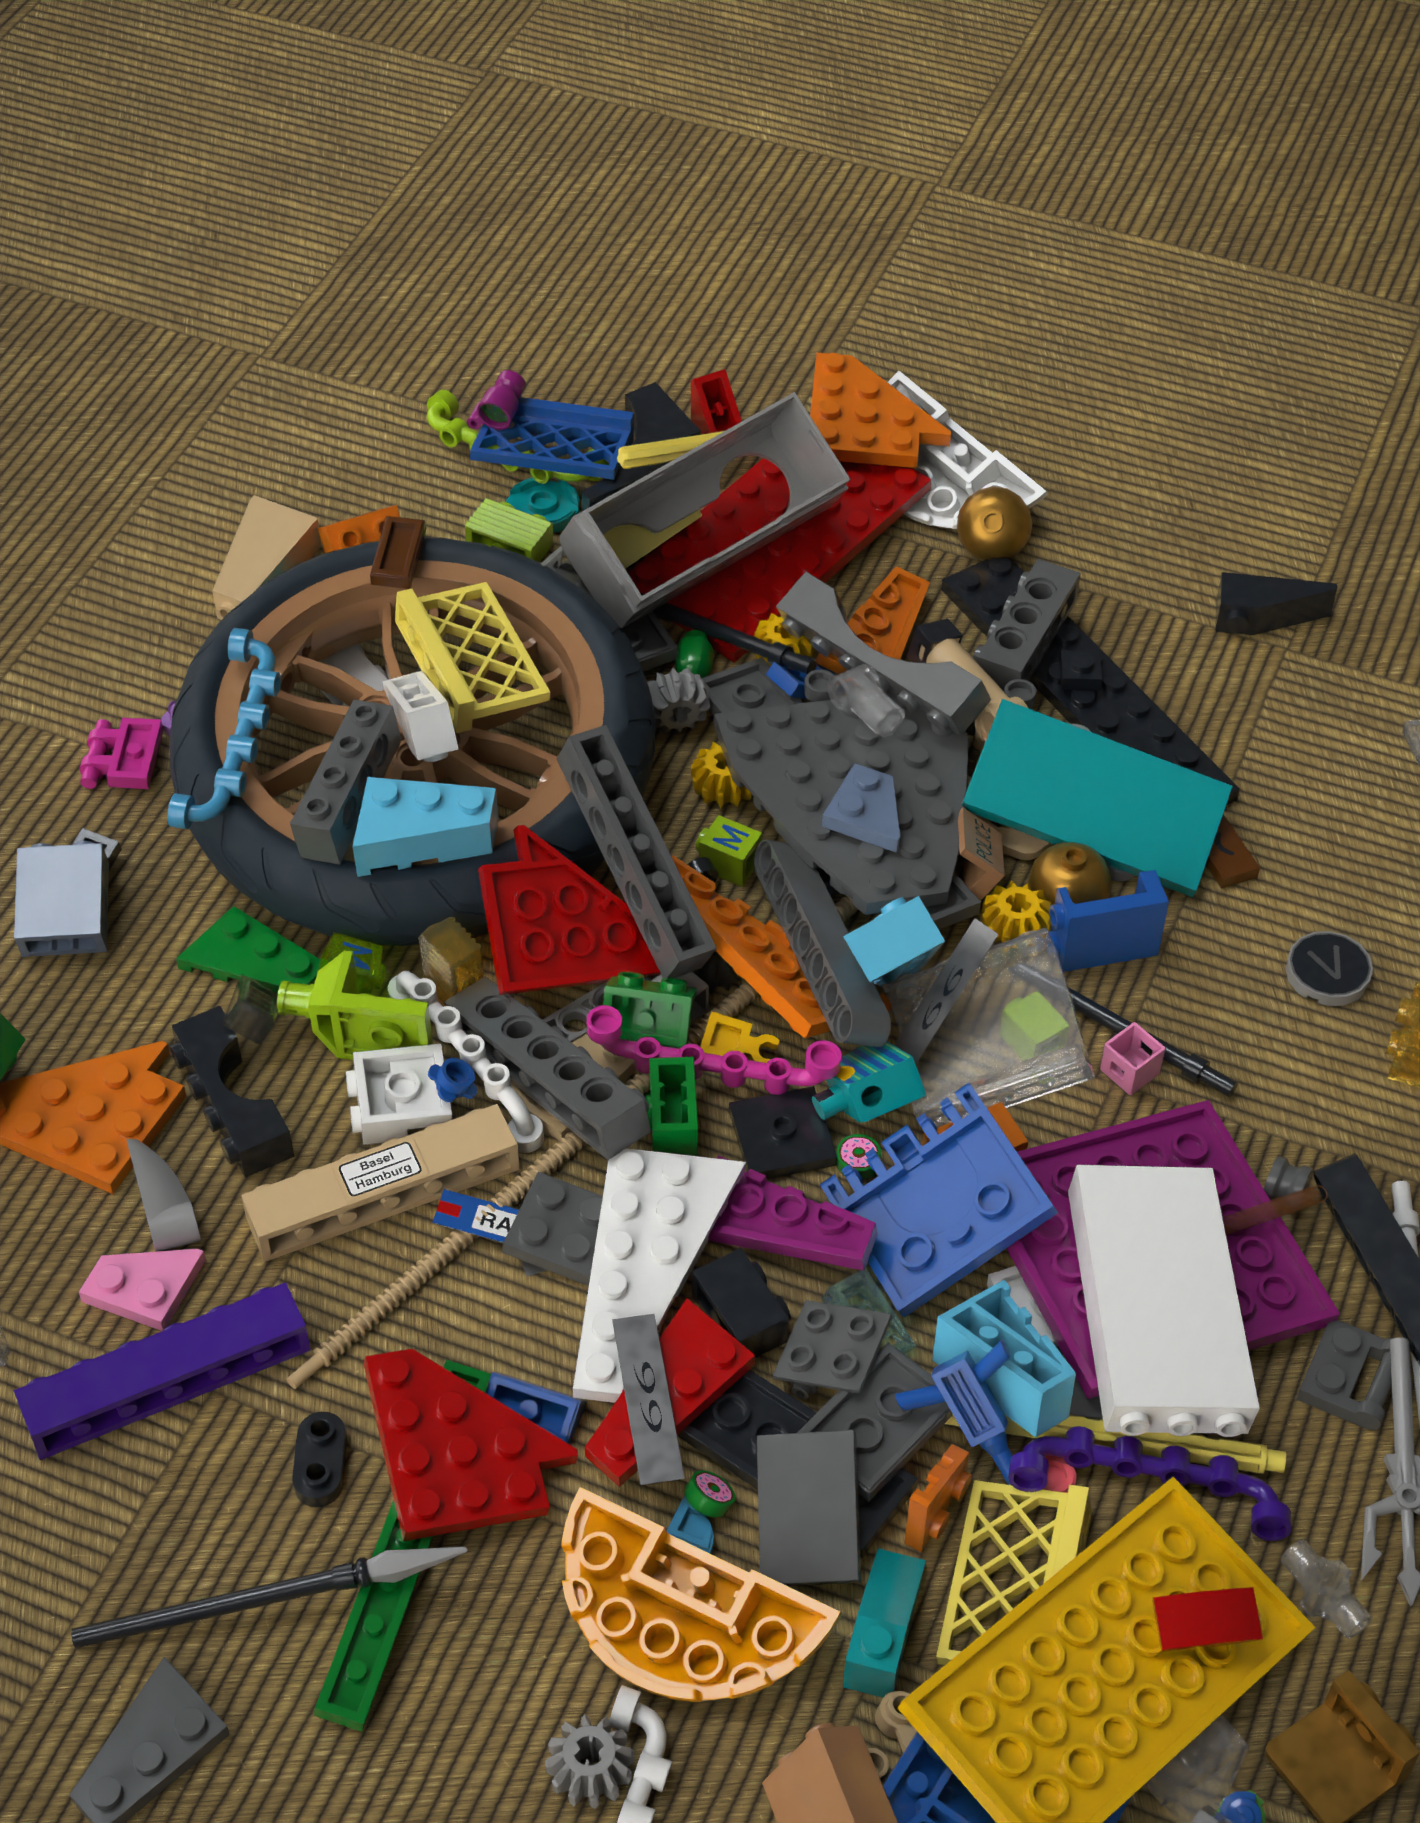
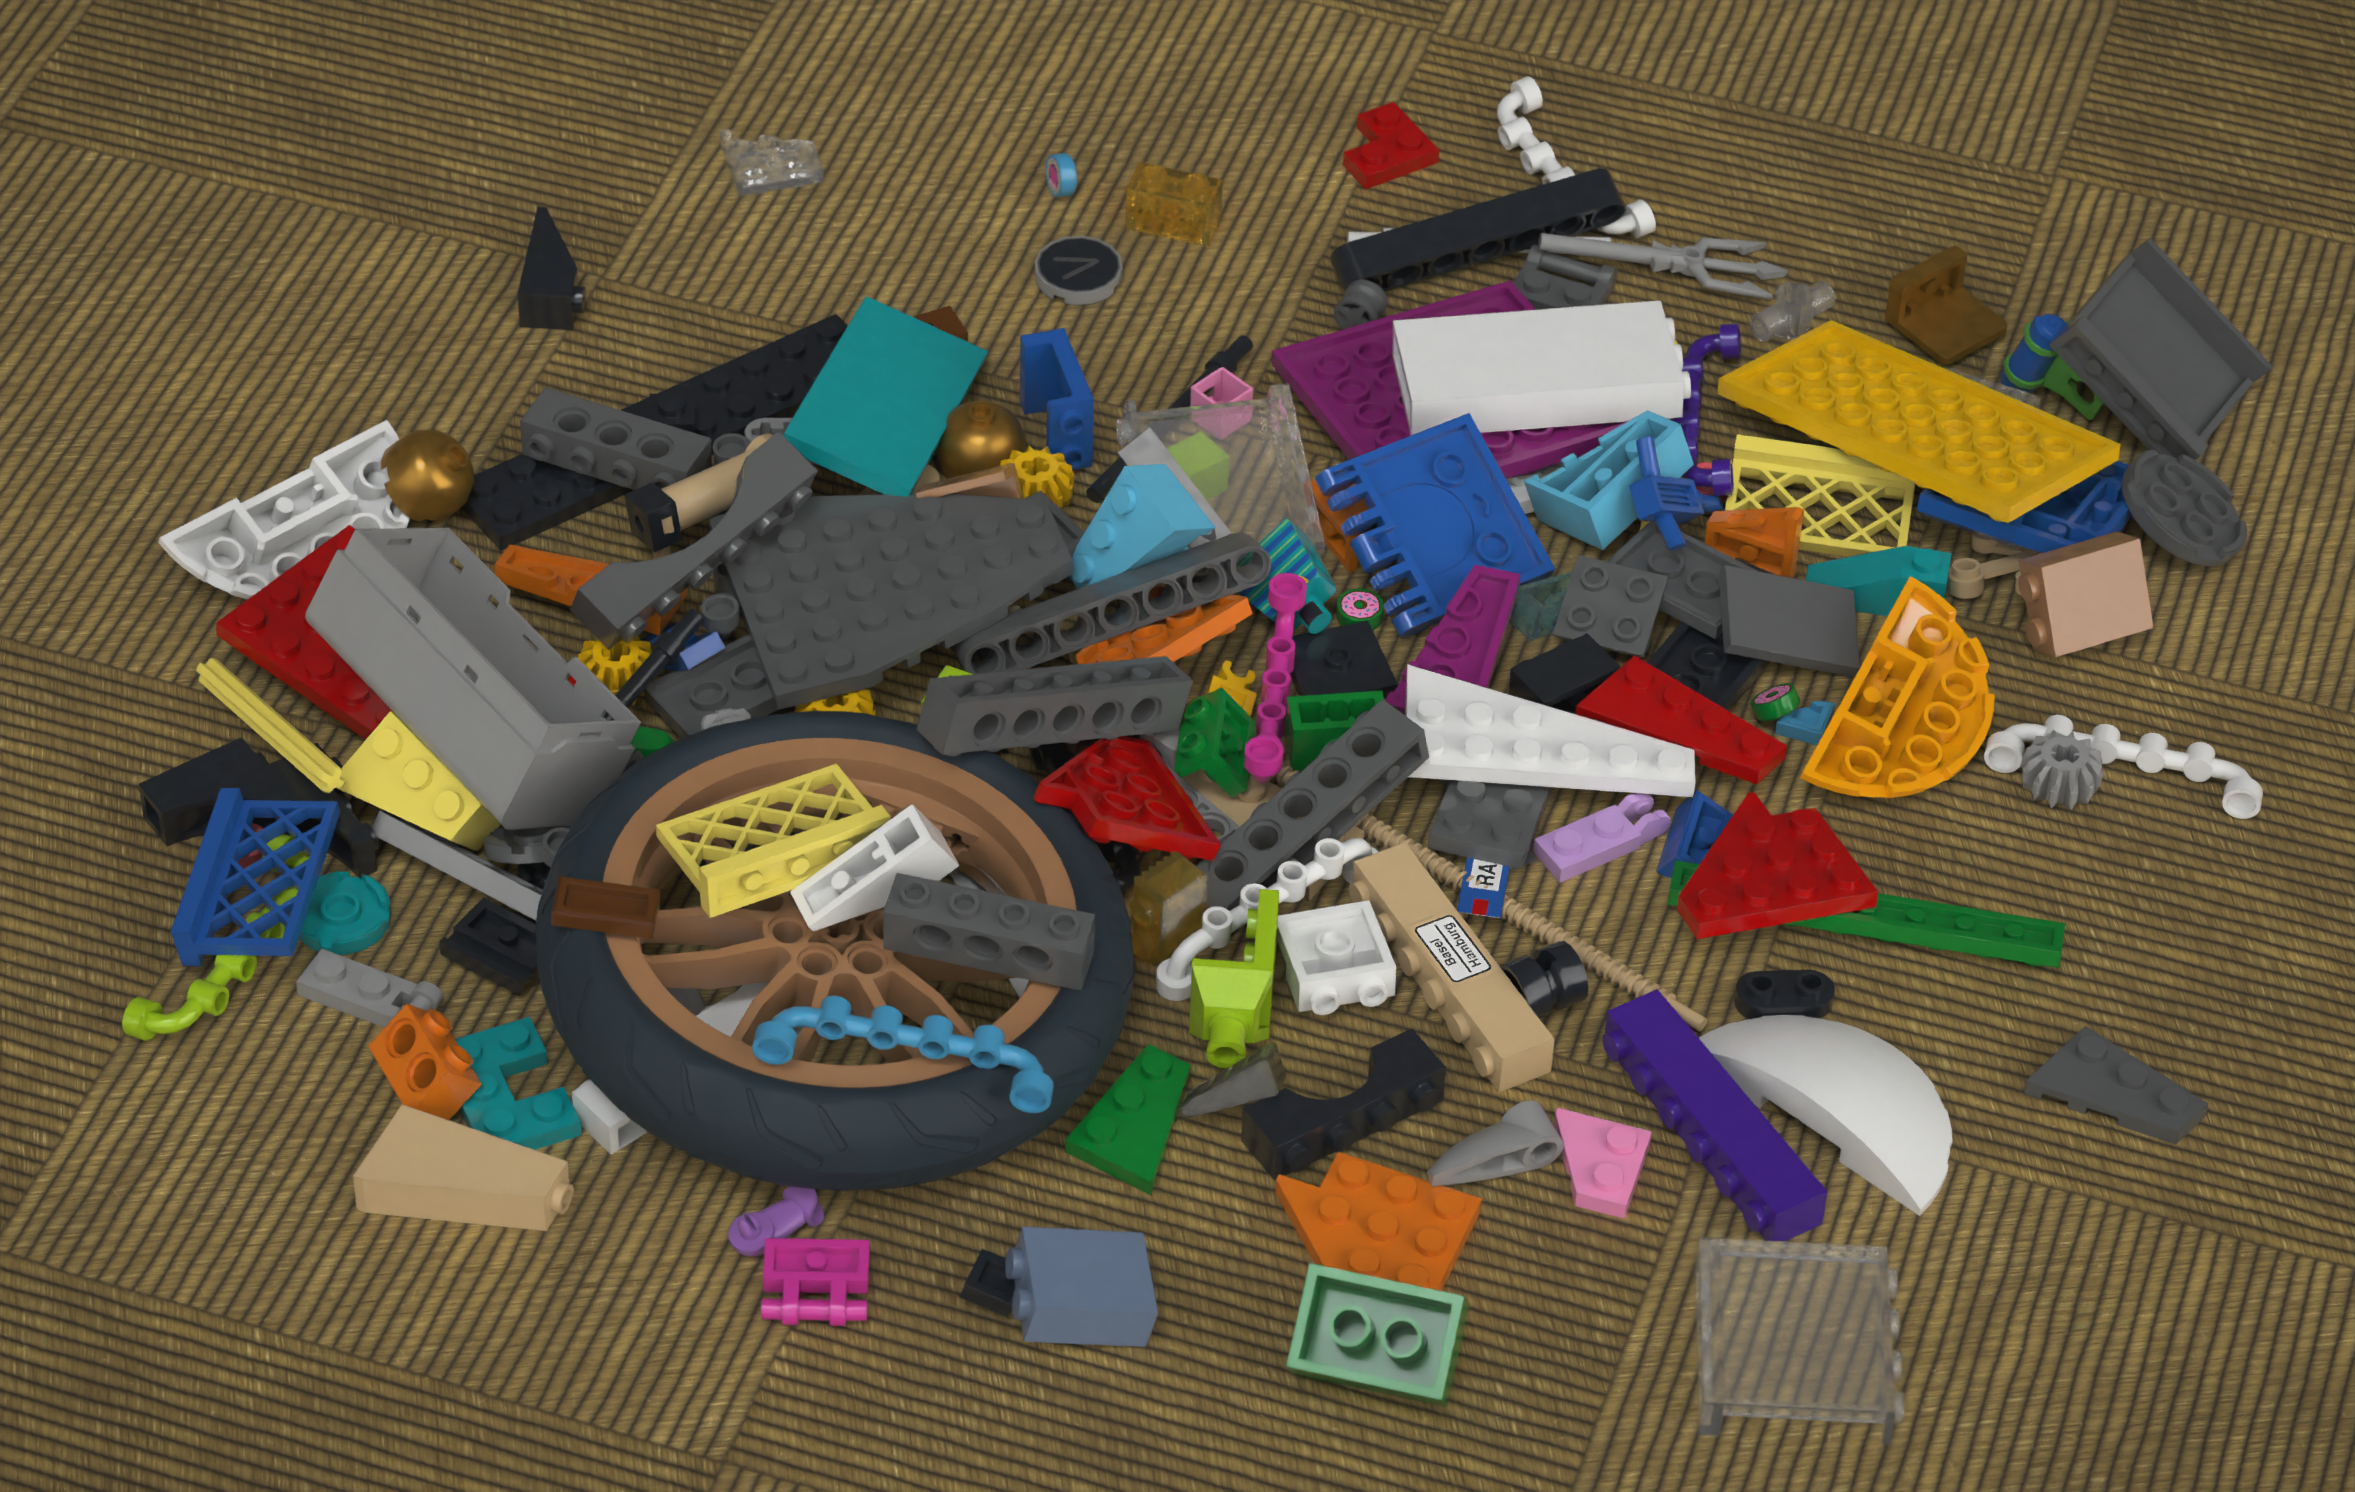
camera: 95 degrees left, 5 degrees down
(180, 1488) = (1848, 1091): none -> white brick
(345, 1245) = (1549, 978): none -> black wheel
(366, 956) = (1164, 1012): clear neon green brick -> none
(385, 1567) = (1930, 933): black piece -> none
(422, 822) = (1054, 855): medium azure wedge -> none
(453, 516) = (363, 989): none -> light grey plate
(453, 1079) = (1333, 890): blue plate -> none
(499, 402) = (215, 914): magenta piece -> none
(510, 529) = (411, 927): lime brick -> none
(540, 1320) = (1600, 837): none -> lavender hinge
(648, 1399) = (1703, 720): flat silver sticker -> none
(713, 403) = (175, 735): red slope -> none
(862, 693) = (759, 561): clear piece -> none
(865, 808) = (939, 553): sand blue wing -> none
(867, 416) = (245, 572): orange wing -> none
(1207, 1618) = (1868, 354): red slope -> none
(1270, 1205) = (1406, 293): dark orange piece -> none

